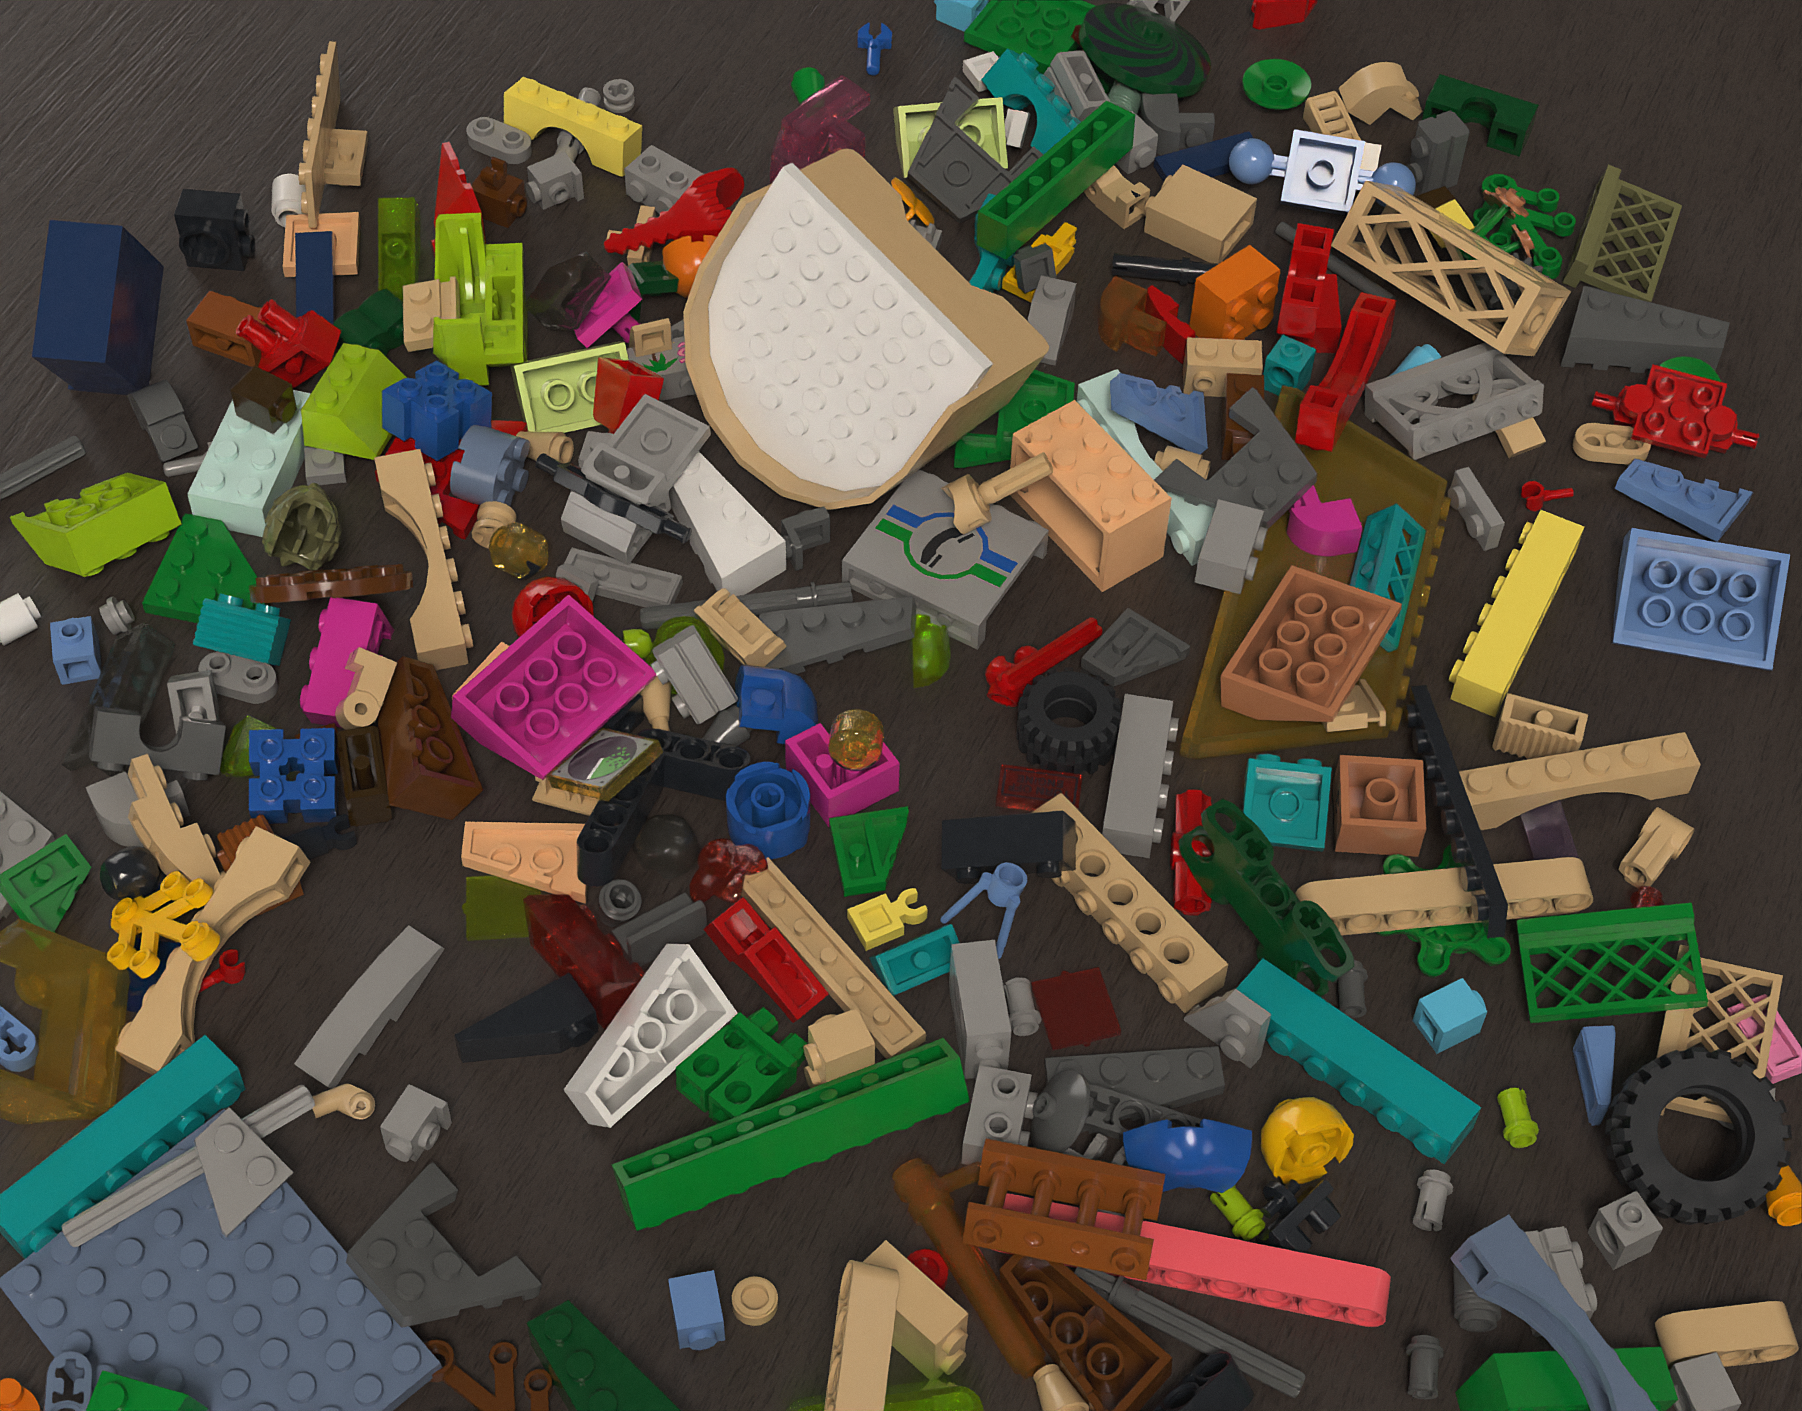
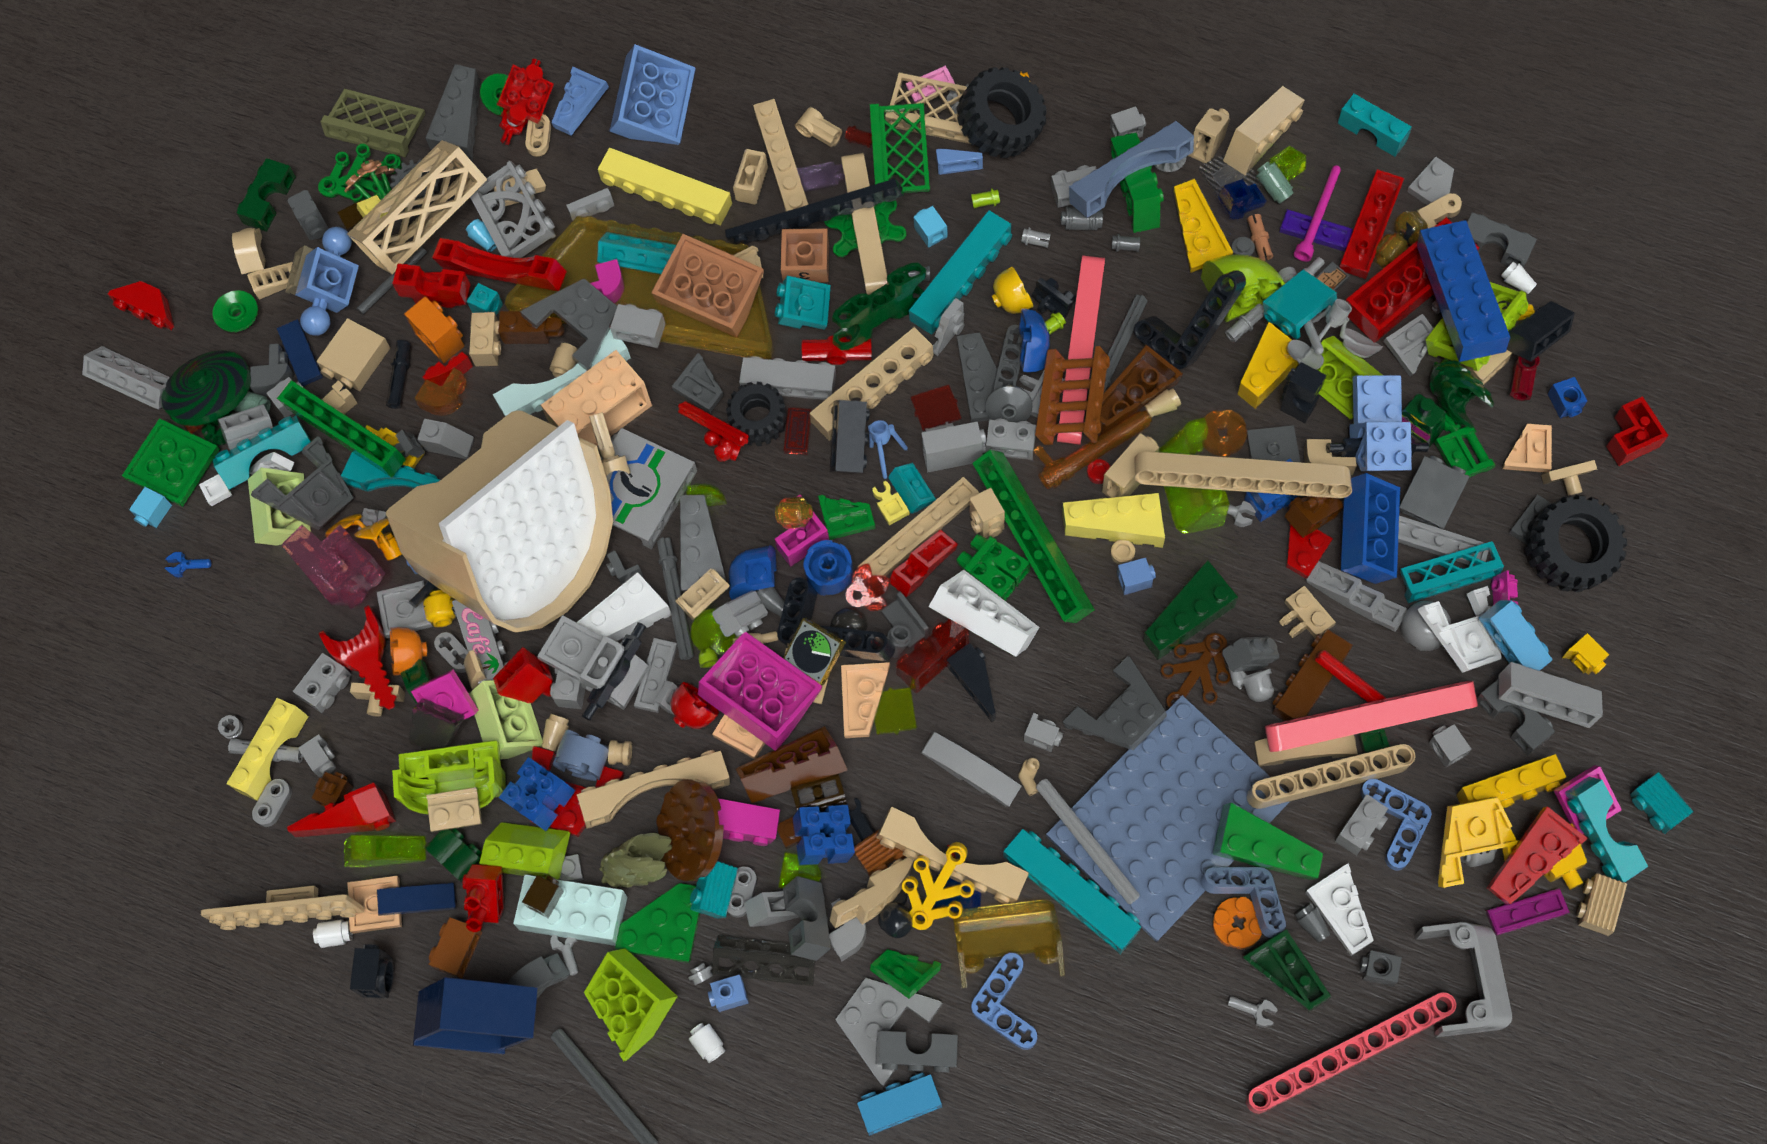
camera: 85 degrees left, 15 degrees up
(238, 1169) = (1092, 810): light grey wing -> none
(367, 689) = (766, 797): tan leg -> none
(518, 550) = (643, 732): clear yellow head -> none
(806, 82) = (234, 599): green cone -> none
(808, 1285) = (1116, 518): none -> light yellow wedge
(1162, 411) = (525, 368): medium blue wing -> none
(1537, 495) = (575, 172): red hand -> none
(1625, 1230) = (1046, 152): light grey brick -> none
(1735, 1332) = (1096, 113): tan beam -> none

